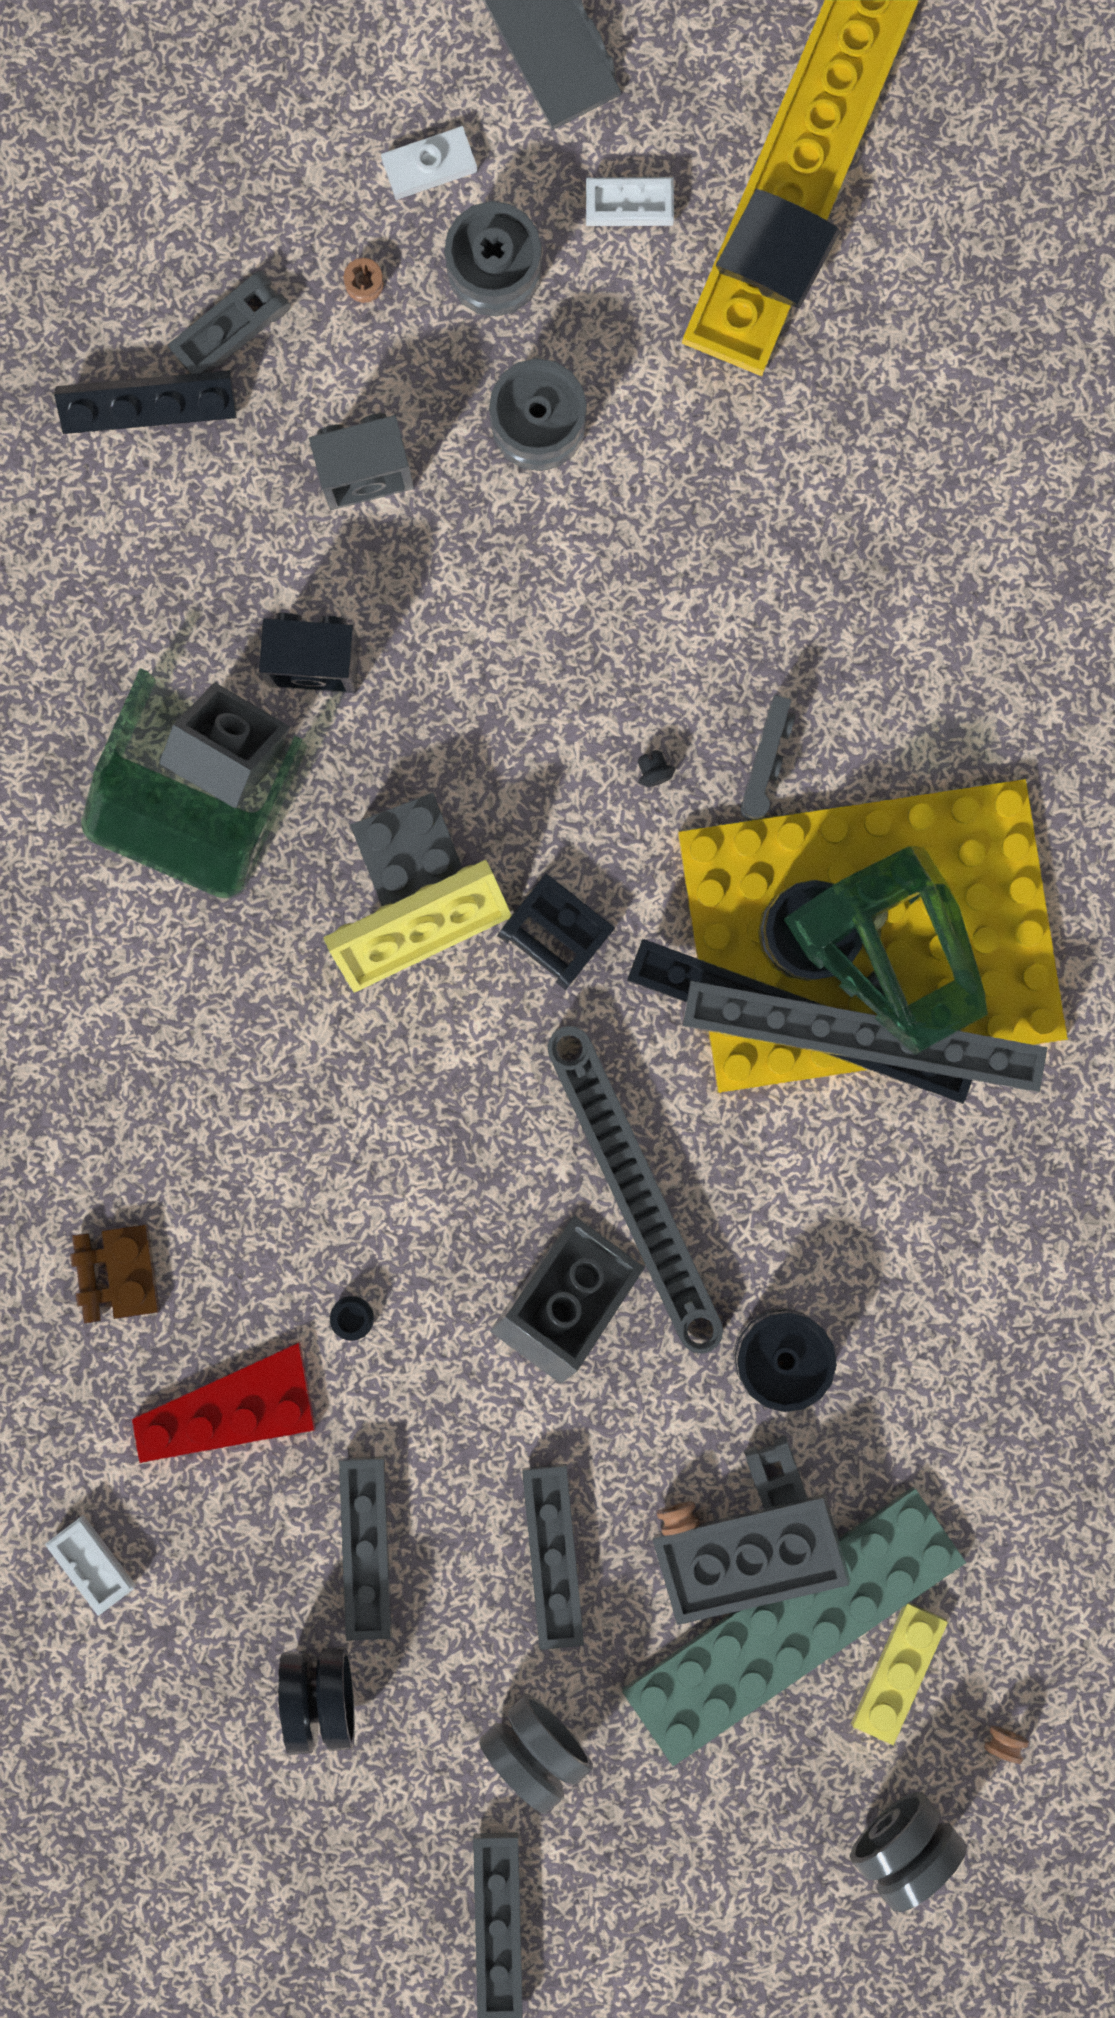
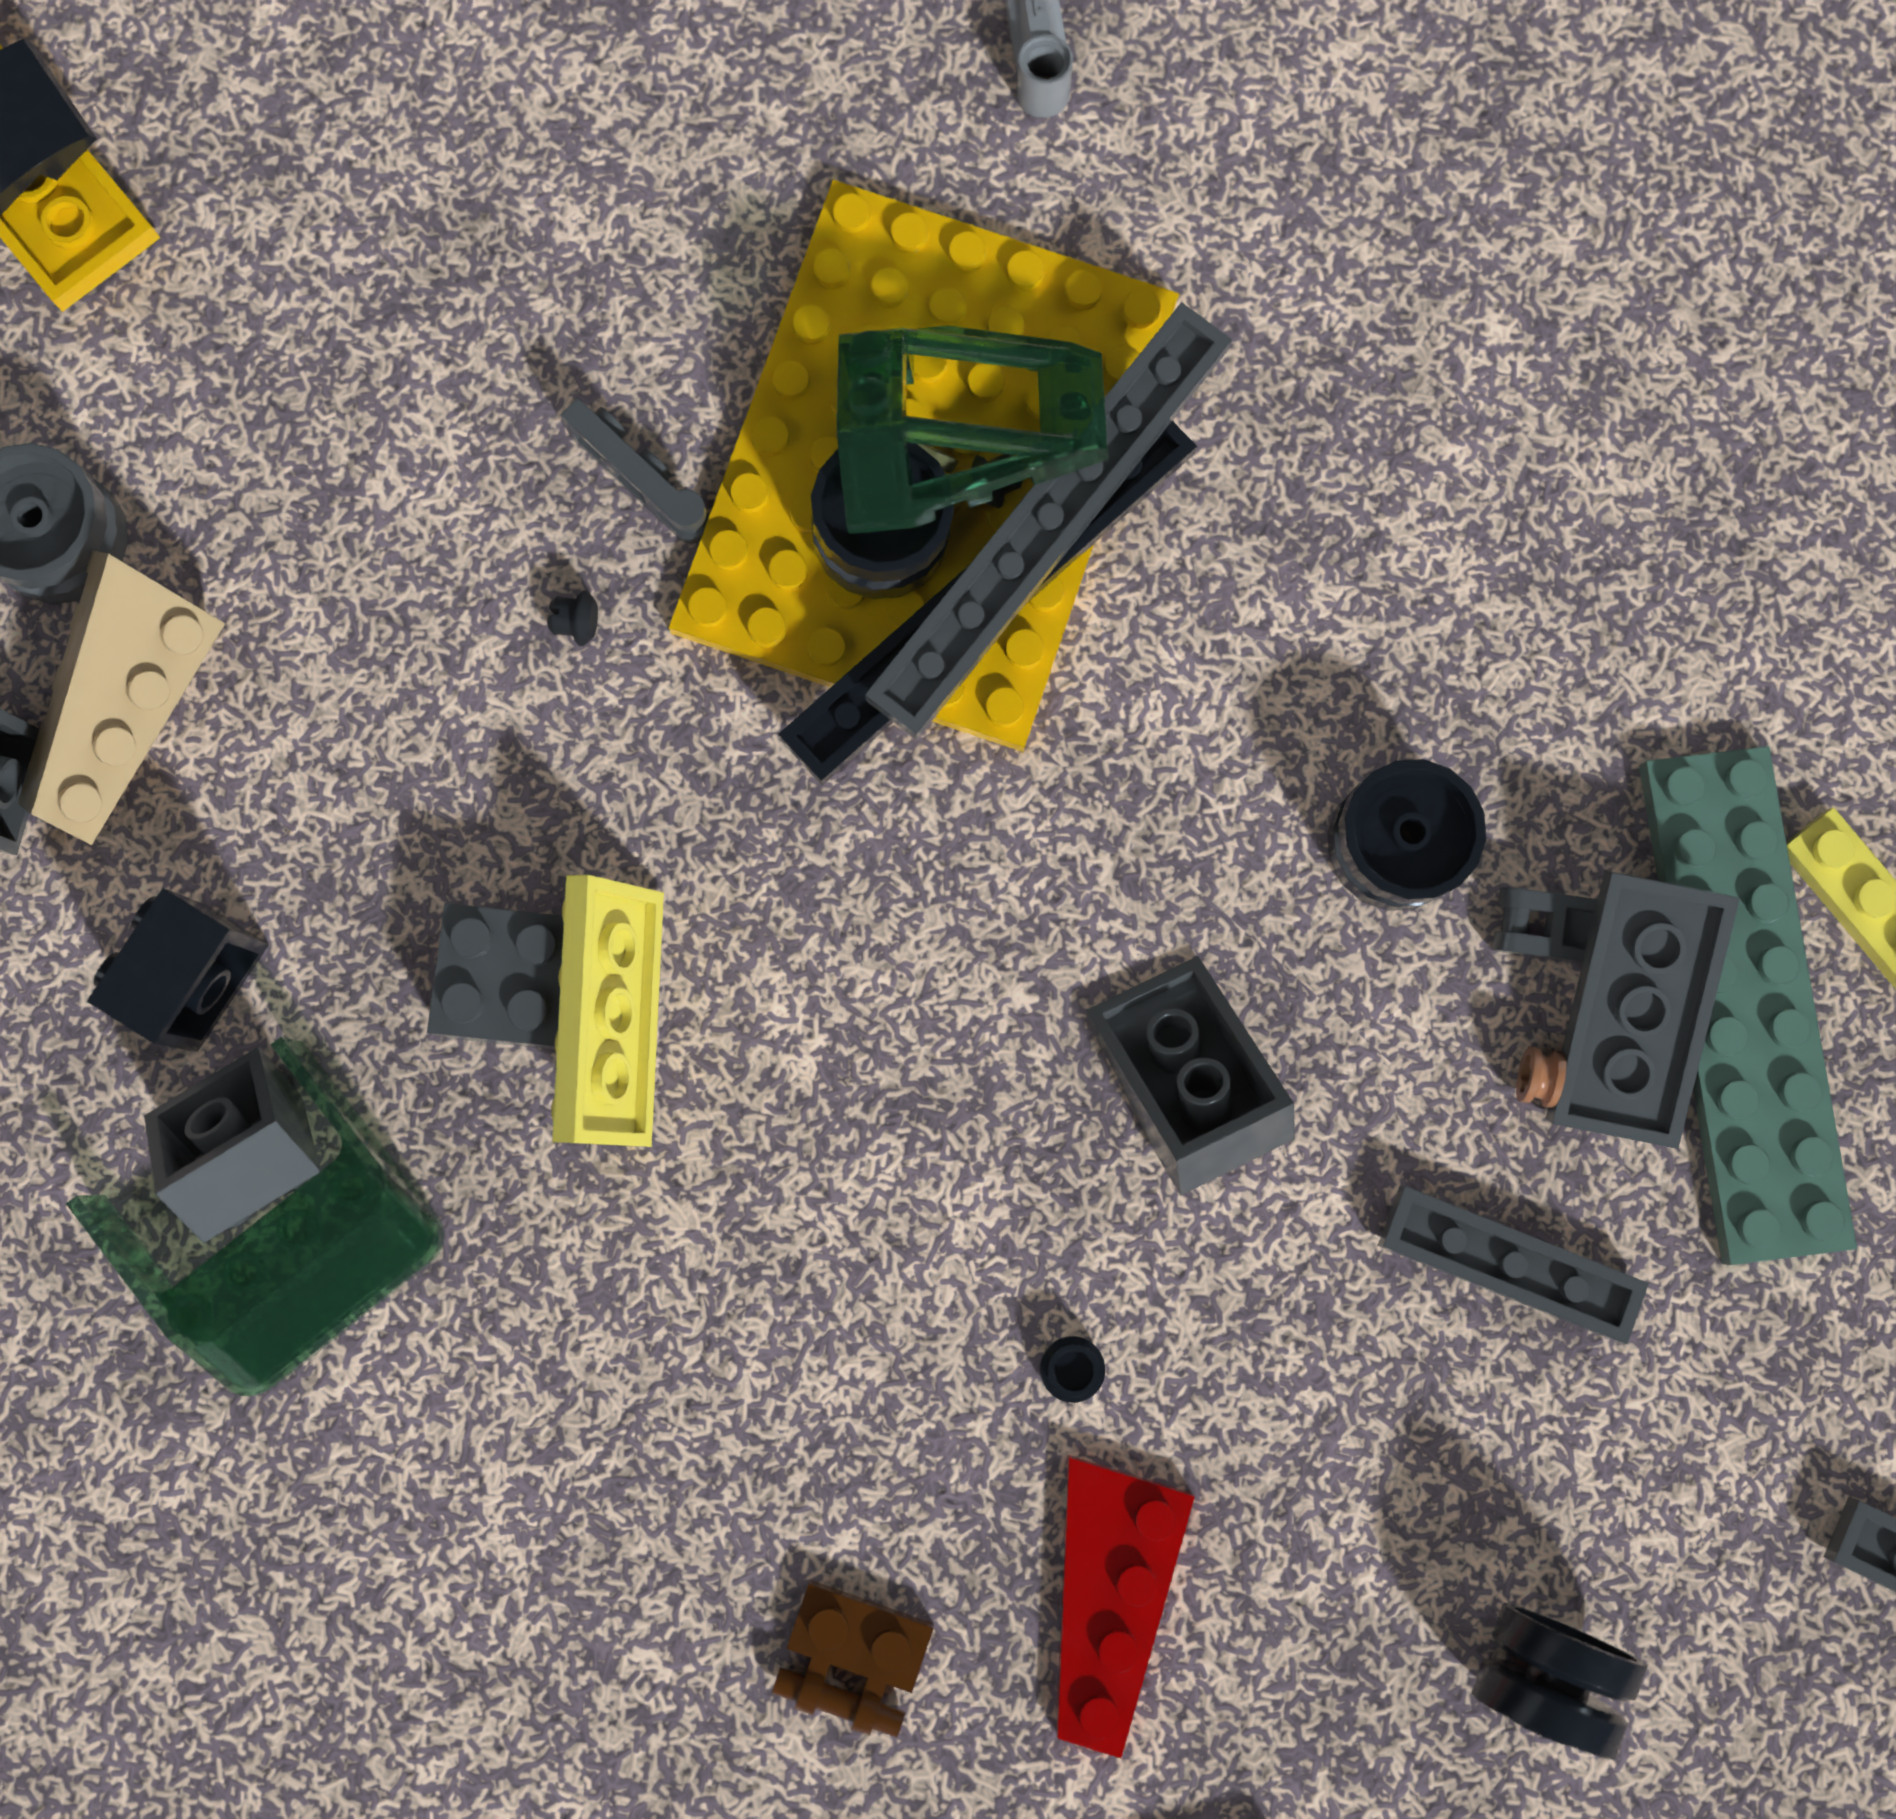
camera: 70 degrees left, 5 degrees down
(365, 1548) = (1383, 1508): dark grey plate -> none
(455, 520) = (115, 690): none -> tan wedge
(535, 1754) = (1766, 1420): dark grey wheel -> none
(563, 918) = (701, 826): black plate -> none
(635, 1190) = (1093, 915): dark grey gear -> none

